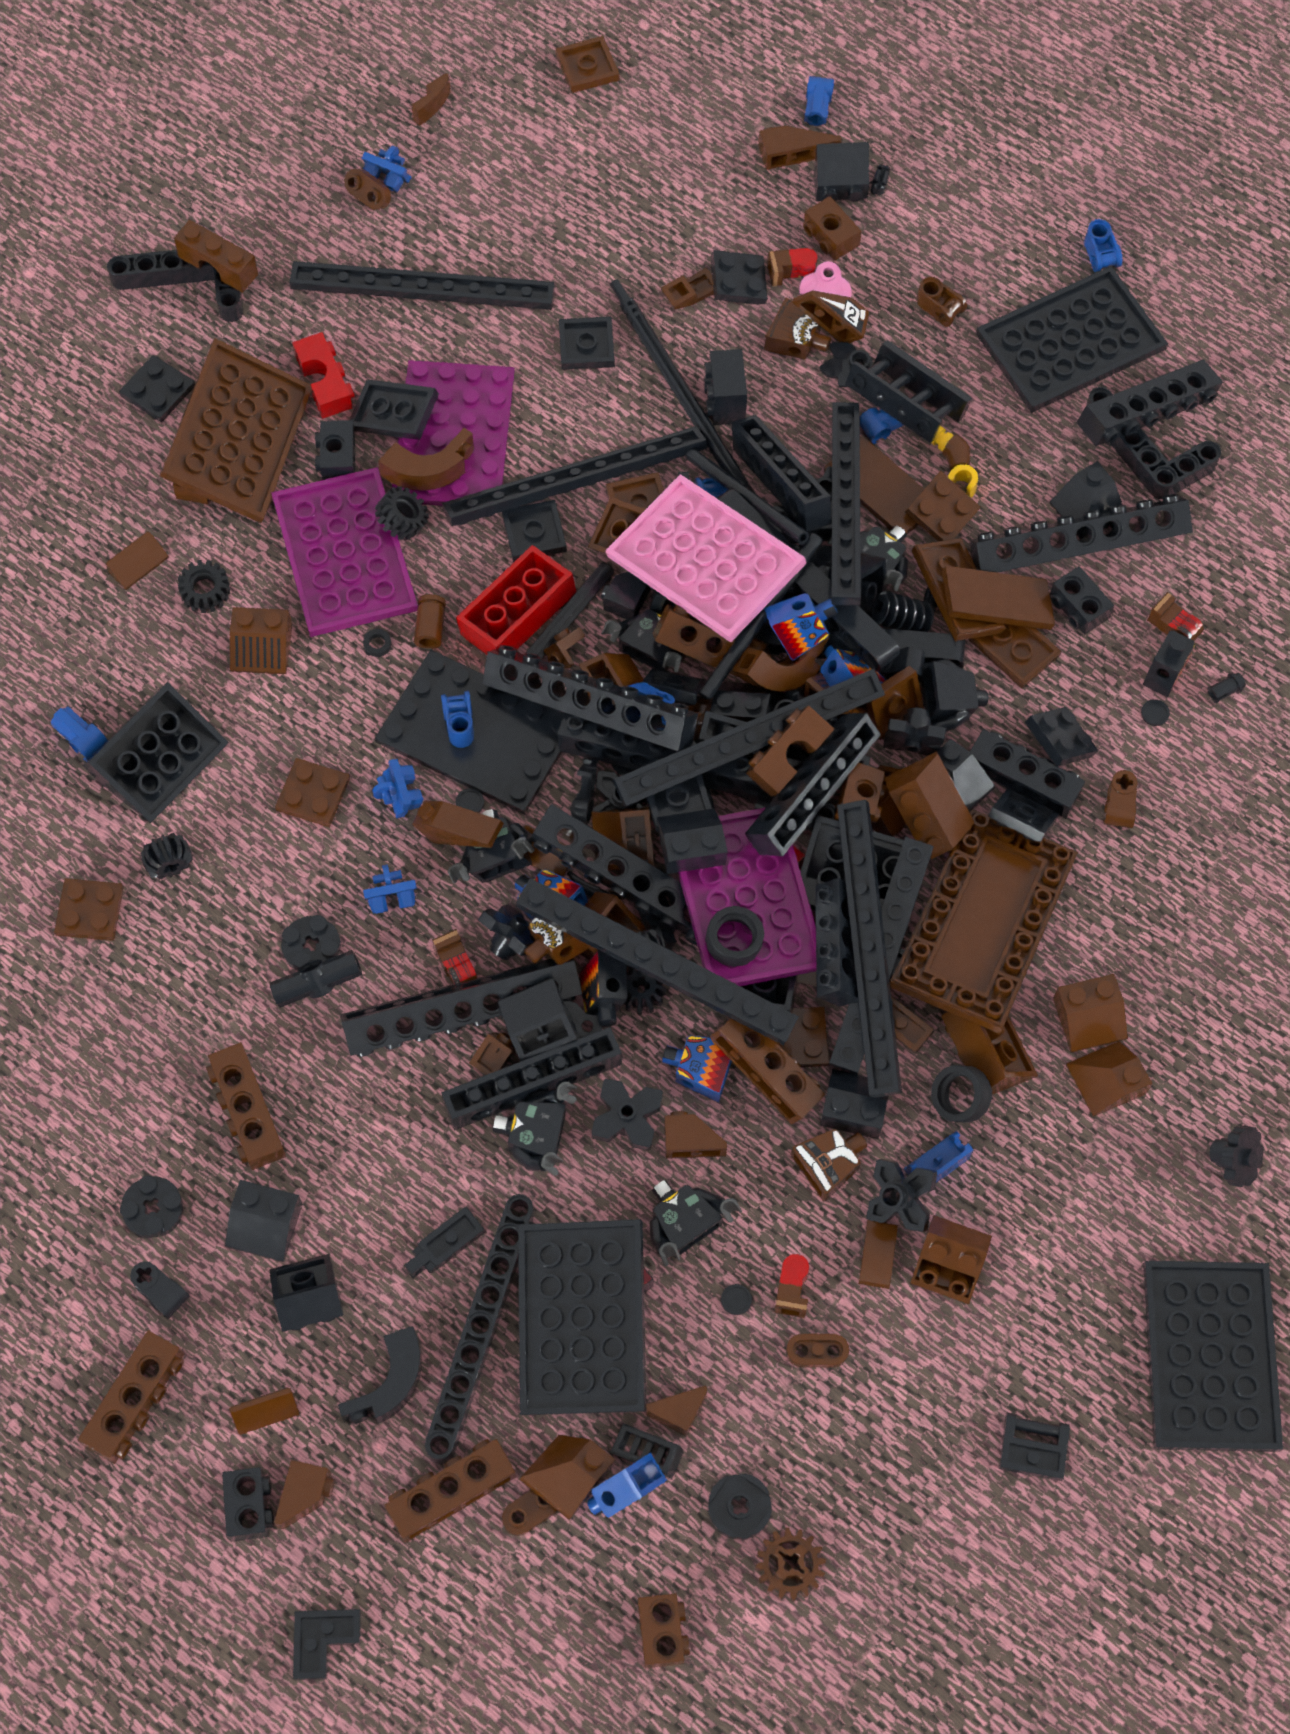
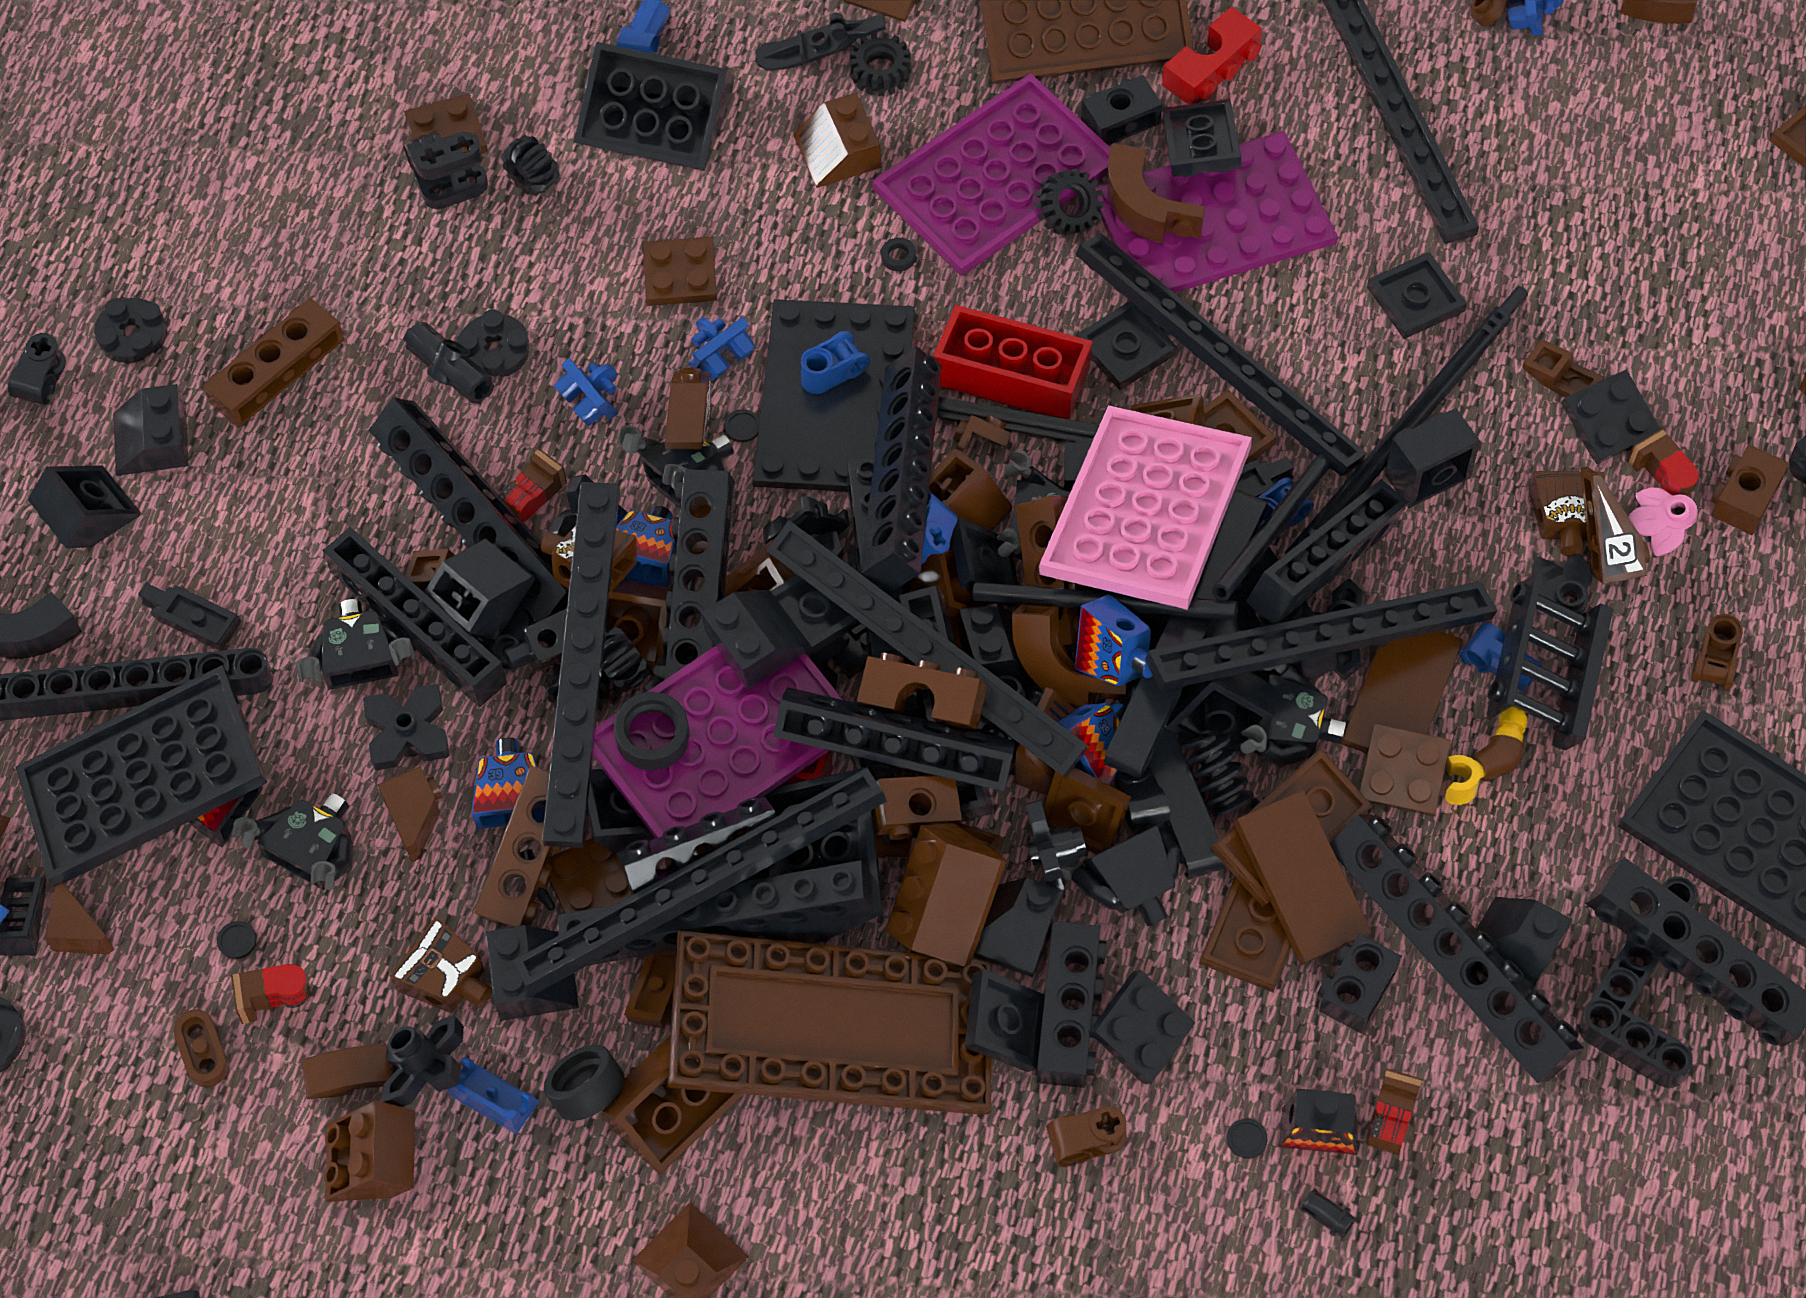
camera: 70 degrees right, 5 degrees down
(136, 915) = (443, 165): none -> black piece
(156, 633) = (804, 47): none -> black piece
(429, 621) = (948, 289): reddish brown piece -> none
(1091, 1012) = (766, 1203): reddish brown slope -> none

